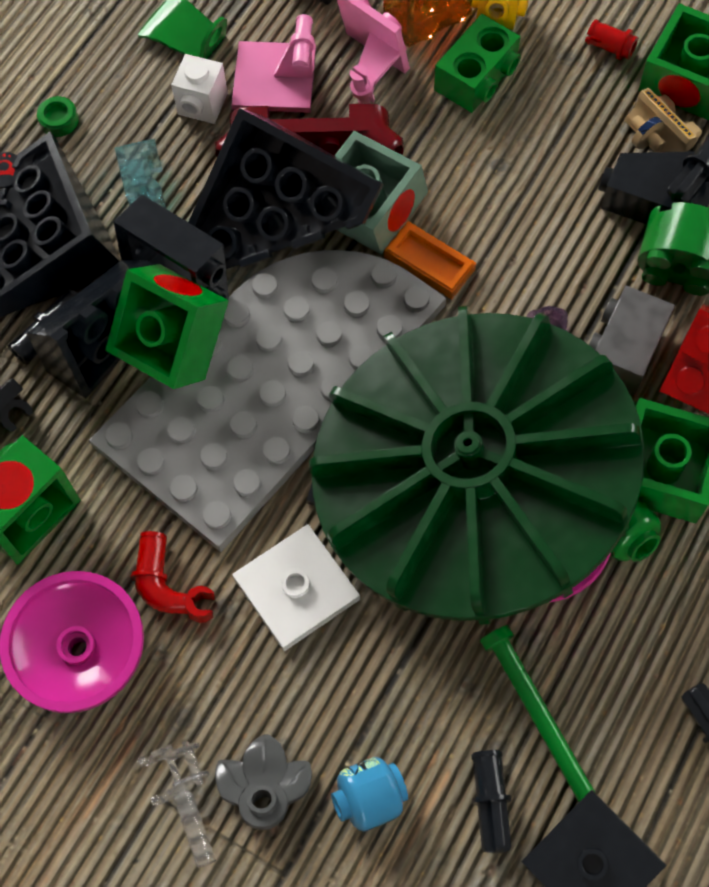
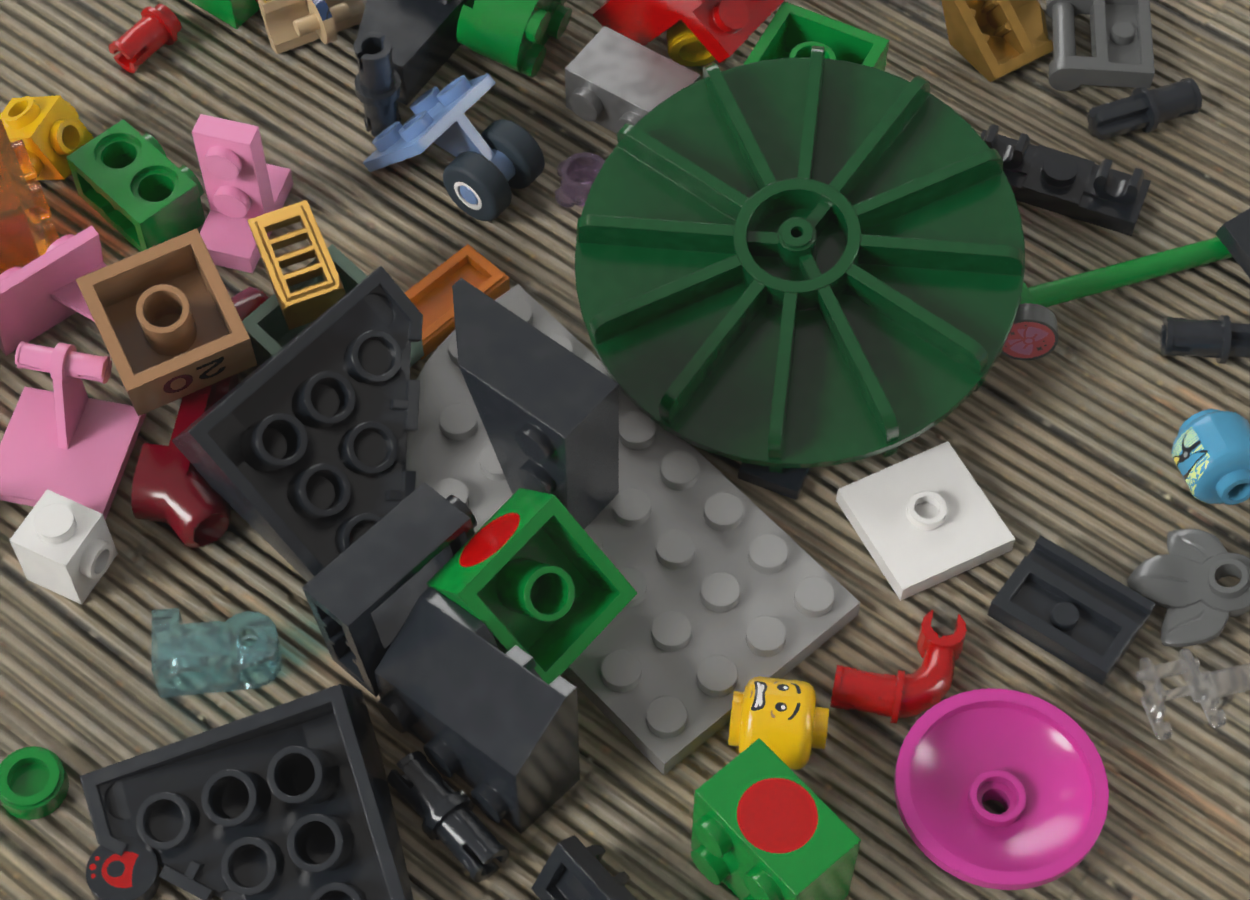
camera: 85 degrees left, 10 degrees down
(118, 501) = (780, 715): none -> yellow head
(229, 690) = (1071, 609): none -> black plate
(280, 292) = (540, 405): none -> black wedge
(333, 84) = (167, 321): none -> medium nougat brick
(390, 163) = (311, 301): none -> pearl gold slope
(466, 644) = (1032, 333): none -> tile
(474, 125) = (237, 188): none -> bright pink bracket
(549, 267) = (484, 162): none -> plate
(586, 173) = (377, 82): none -> black pin
(629, 666) = (1070, 183): none -> black plate

